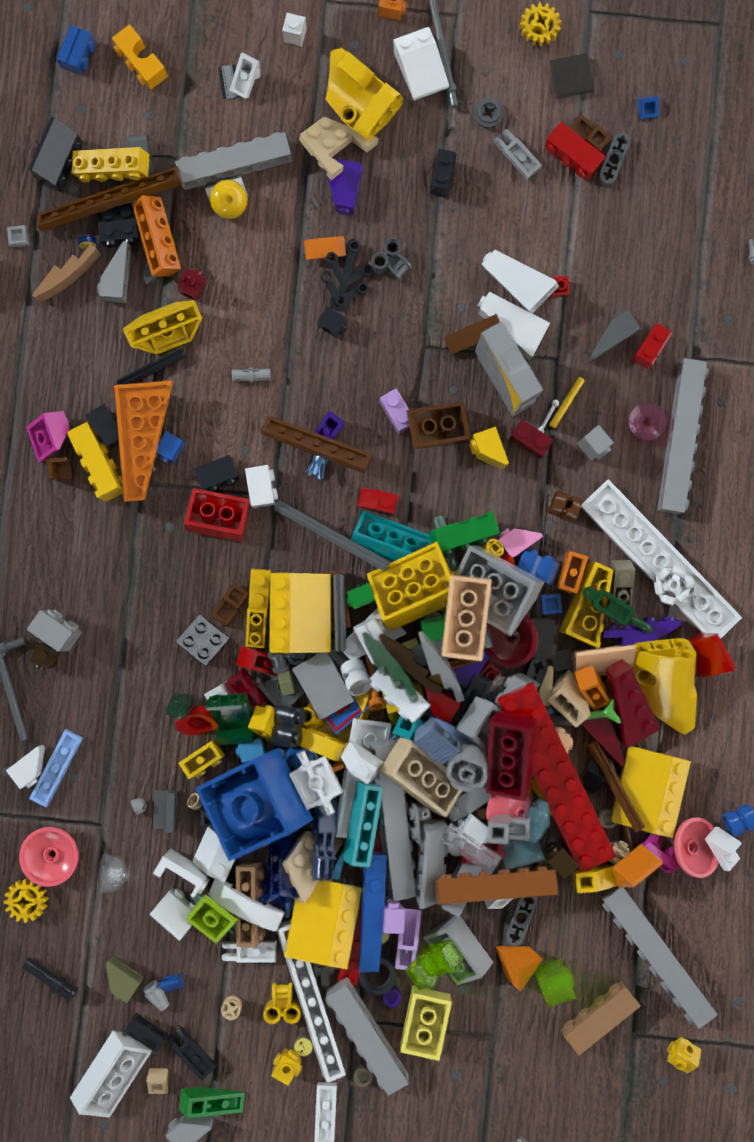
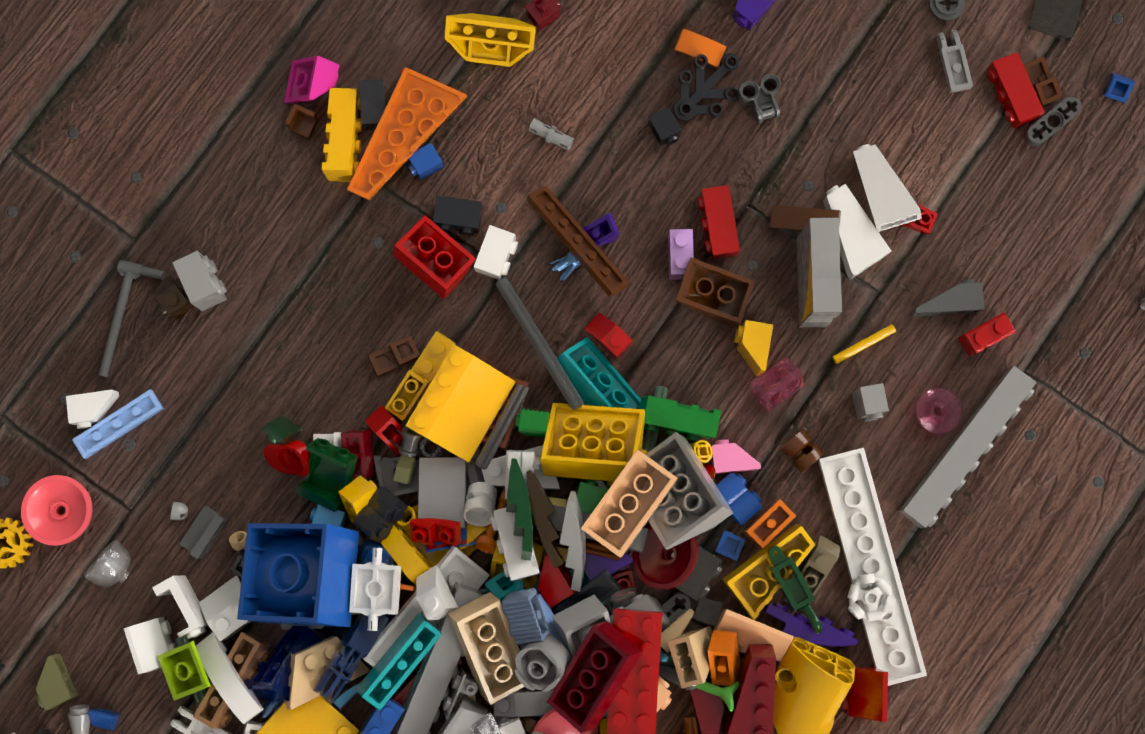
camera: 30 degrees right, 5 degrees down
(152, 367) = (455, 71): black axle -> none
(202, 640) = (344, 377): hinge -> none
(202, 758) = (269, 499): yellow brick -> none
(331, 716) = (430, 530): none -> red slope
(411, 372) = (718, 222): none -> red brick
(442, 172) = (865, 38): black brick -> none
(521, 467) = (777, 384): none -> clear pink brick
(531, 439) = (805, 358): dark red brick -> none
(555, 403) = (820, 357): white hinge -> none

